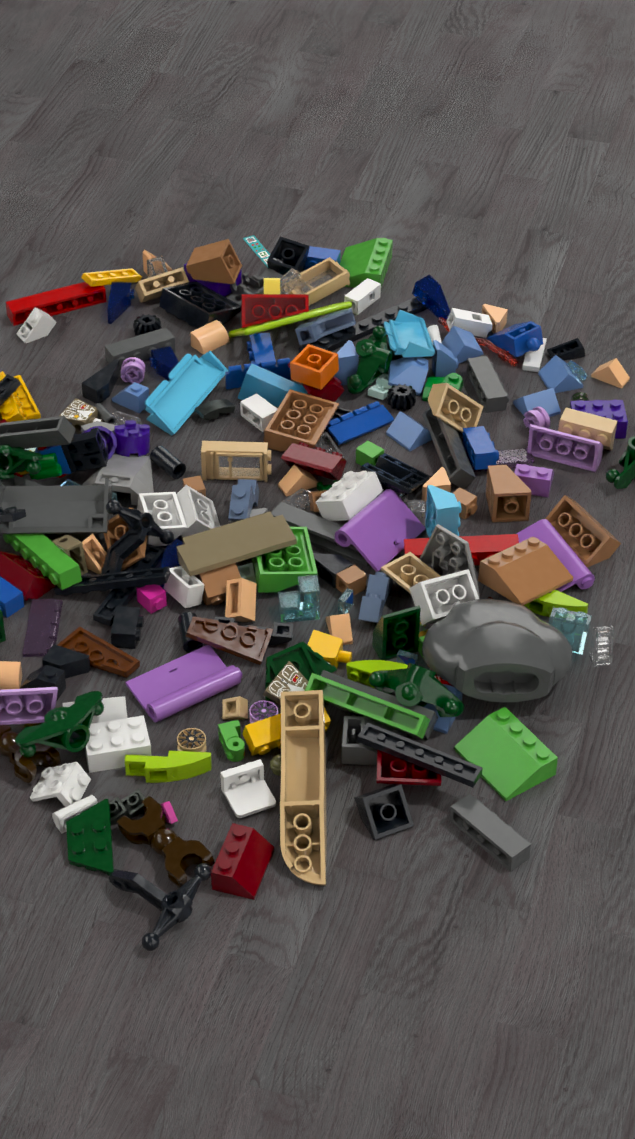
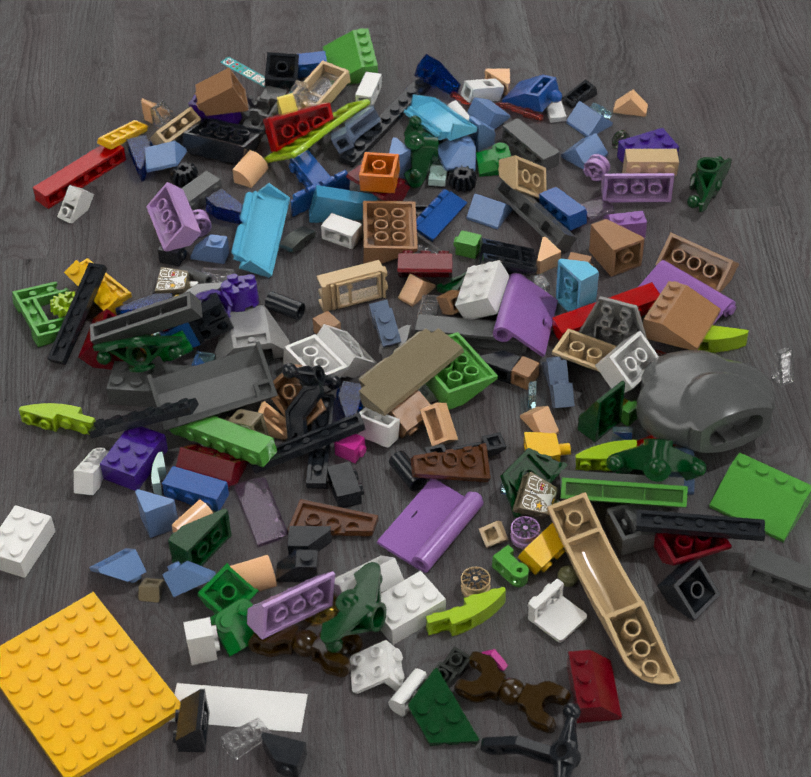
camera: 20 degrees left, 5 degrees up
(109, 359) = (173, 218): none -> lavender slope
(136, 304) = (163, 156): none -> medium blue slope
(301, 604) = (496, 408): clear light blue brick -> none
(573, 625) = (748, 352): clear light blue slope -> none

